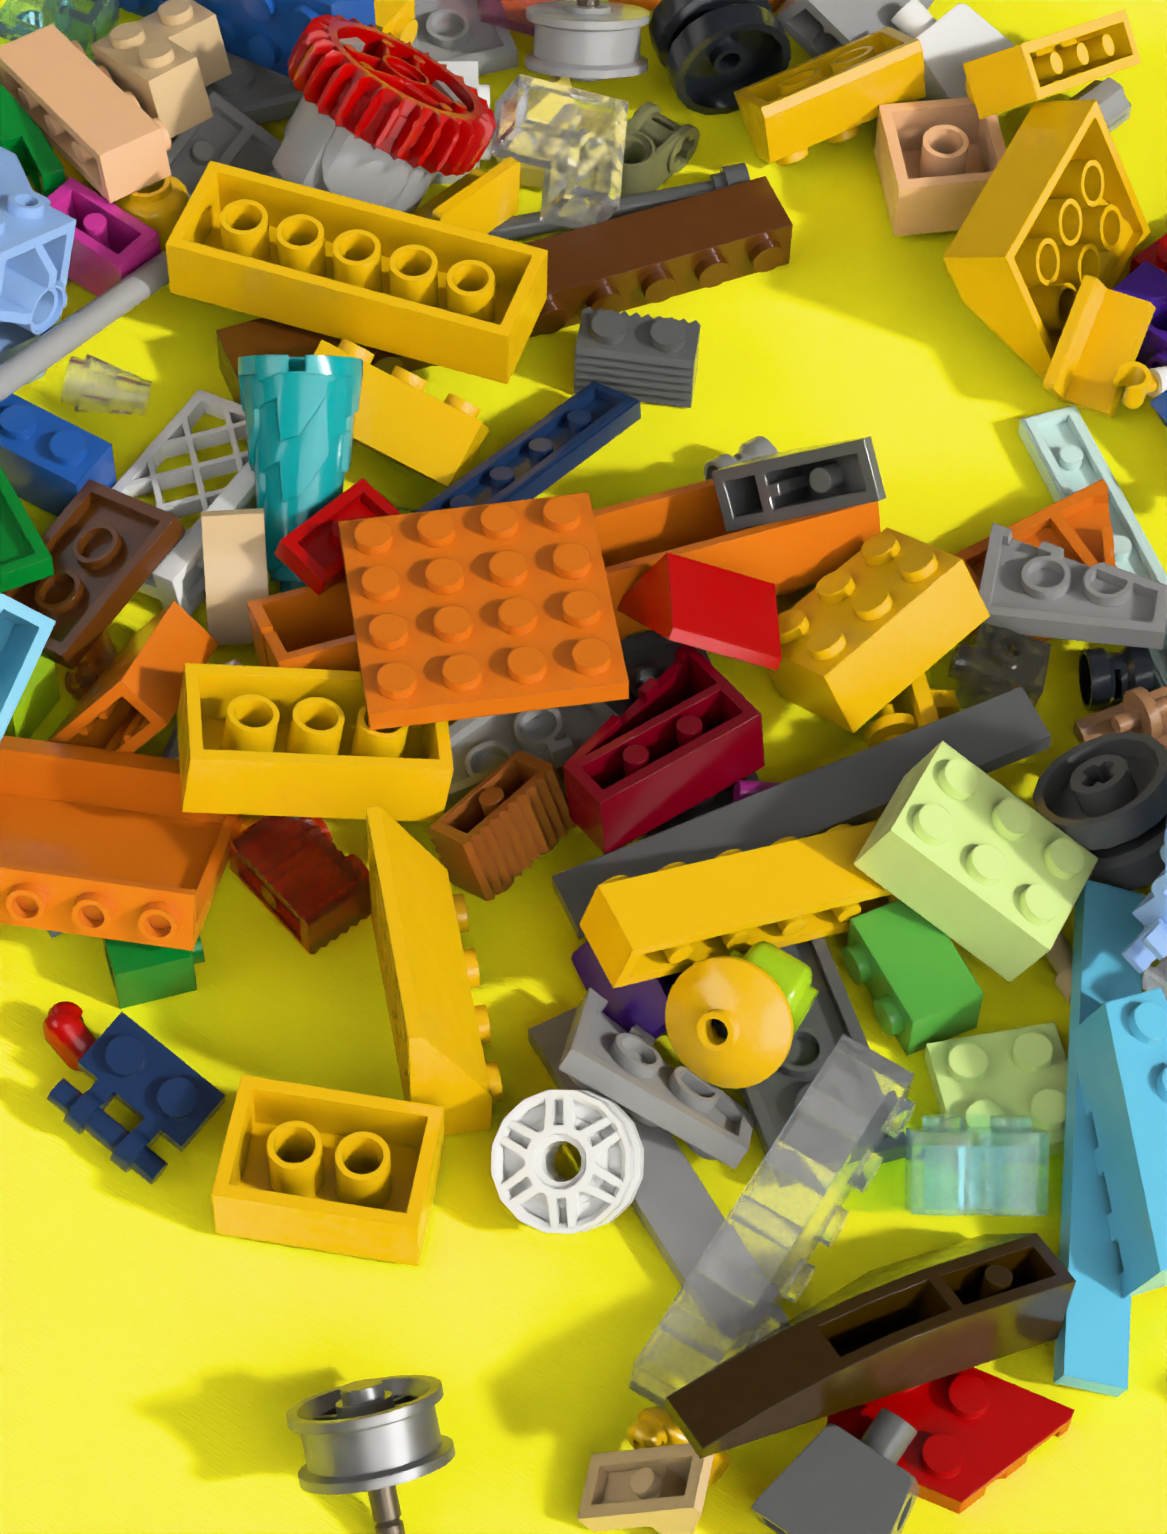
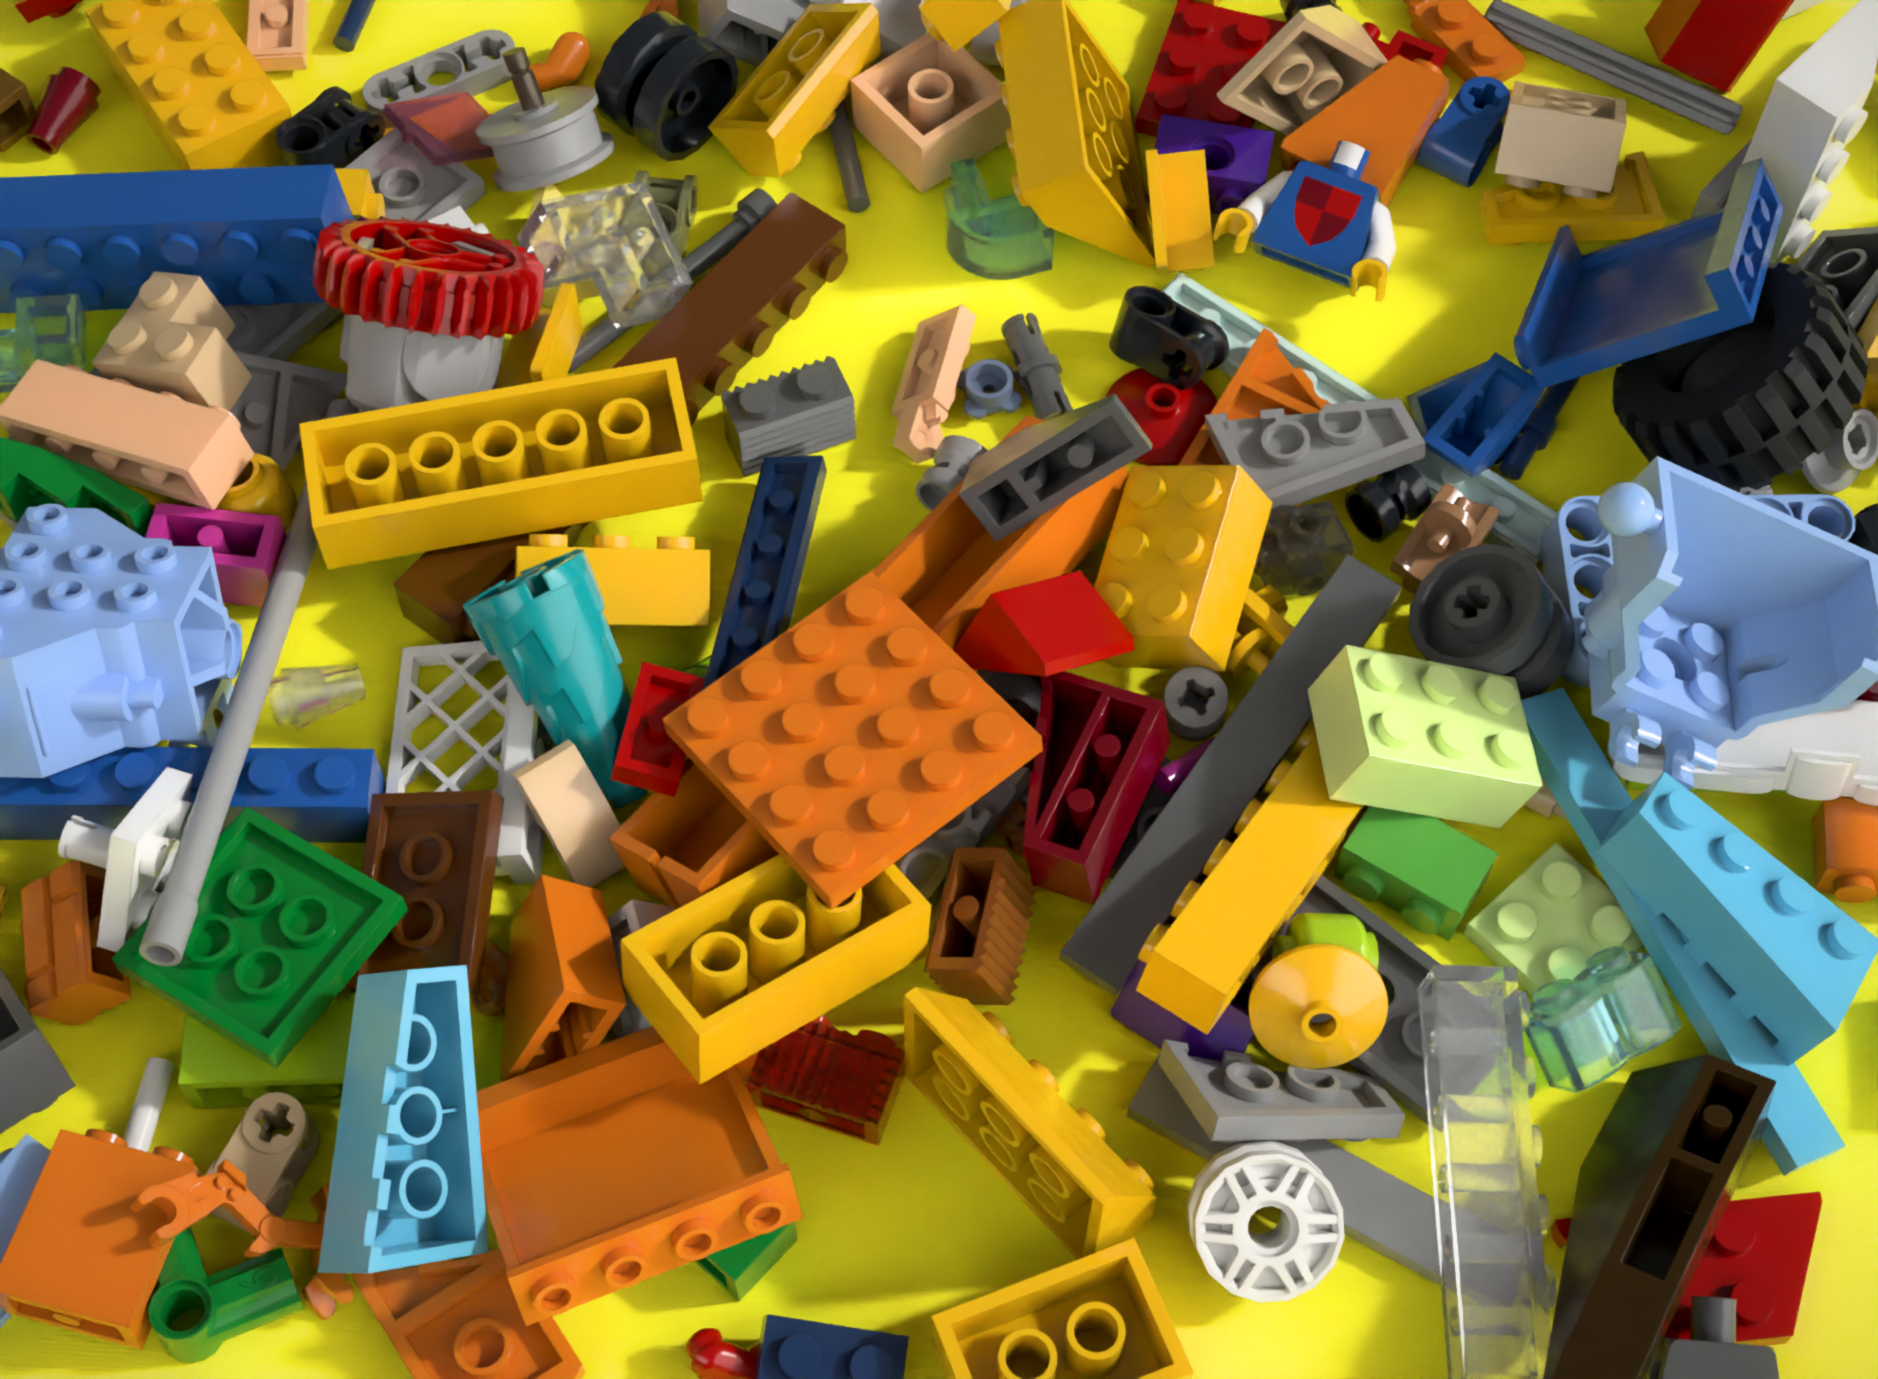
camera: 30 degrees left, 5 degrees up
(779, 390) = (931, 381): none -> light nougat hinge
(806, 733) = (1196, 718): none -> light grey wheel
(830, 418) = (993, 376): none -> sand blue plate
(849, 176) = (848, 161): none -> dark grey bar
(886, 418) = (1036, 367): none -> dark grey pin
(923, 295) = (993, 236): none -> clear light blue brick
(945, 511) = (1170, 427): none -> red dish
(1015, 449) = (1159, 336): none -> black piece

